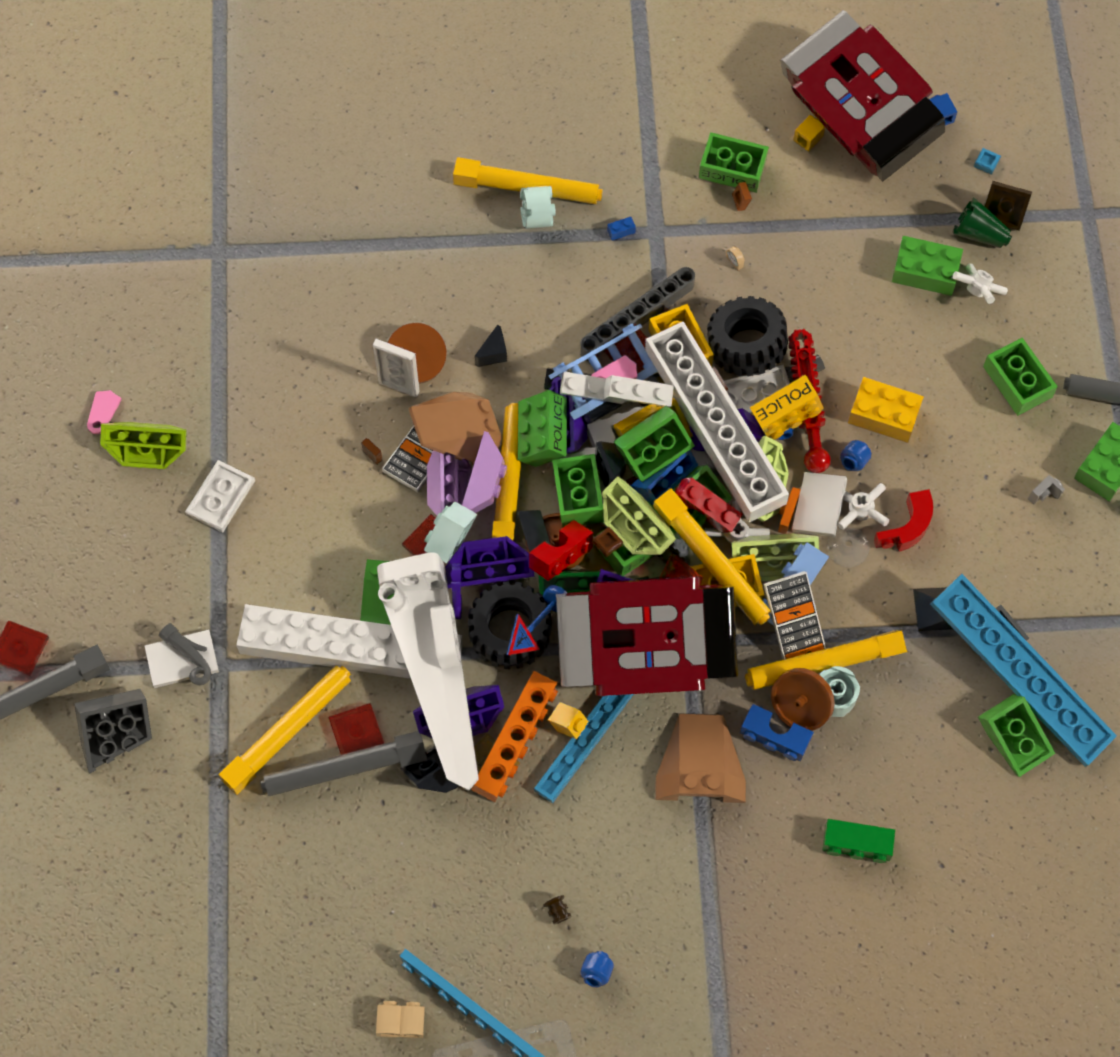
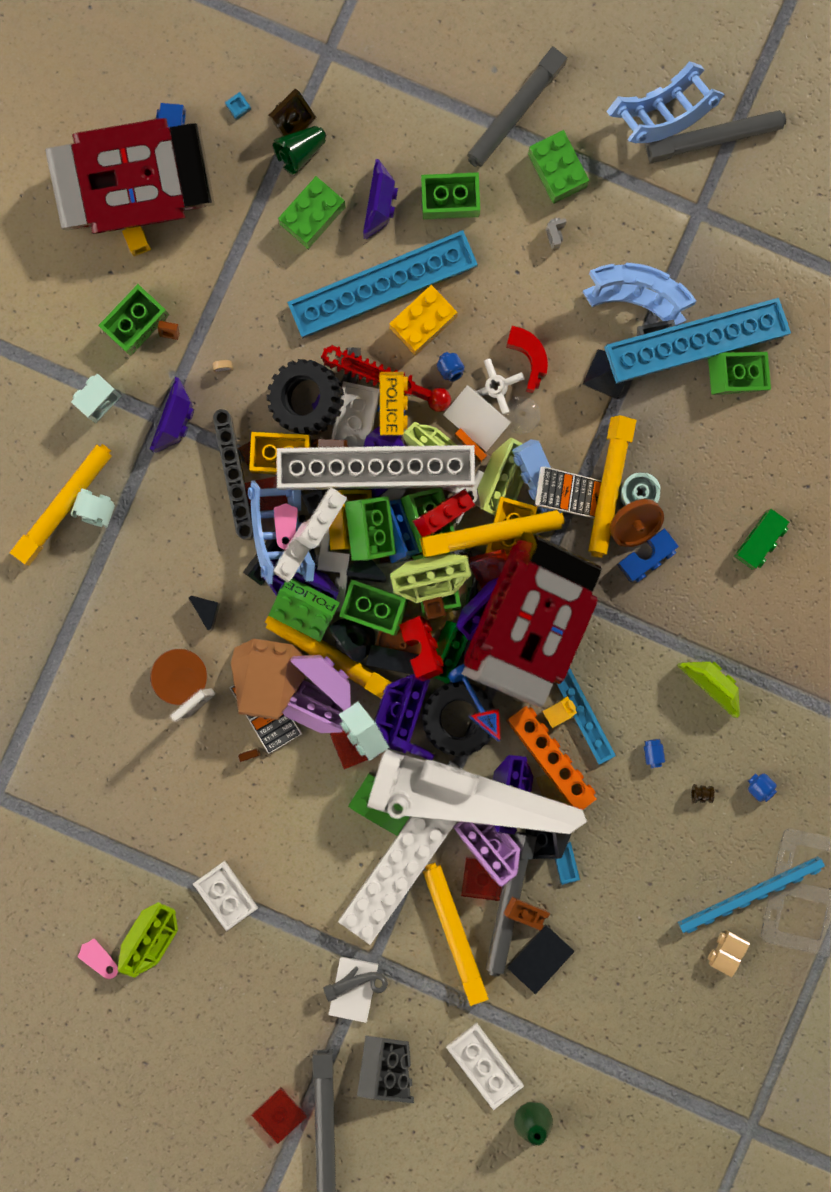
camera: 65 degrees left, 20 degrees up
(122, 904) = (533, 1122): none -> dark green cone
(160, 826) = (485, 1066): none -> white tile
(300, 828) = (540, 959): none -> black tile
(342, 783) = (526, 913): none -> dark orange plate
(393, 716) = (492, 849): none -> lavender wedge
(413, 807) = (567, 866): none -> dark azure tile
(537, 488) = (353, 638): none -> black hat
(575, 838) = (654, 753): none -> blue brick
(621, 228) = (144, 446): blue piece -> none
(641, 163) = (95, 398): none -> light aqua brick
(661, 236) = (174, 418): none -> dark purple wedge
(681, 864) = (715, 684): none -> lime wedge
(701, 761) = (640, 625): medium nougat wedge -> none
(899, 359) = (382, 284): none -> dark azure plate
(974, 319) = (380, 200): none -> dark purple wedge
(980, 283) = (352, 179): white bar -> none
(1043, 604) = (628, 285): none -> light blue fence

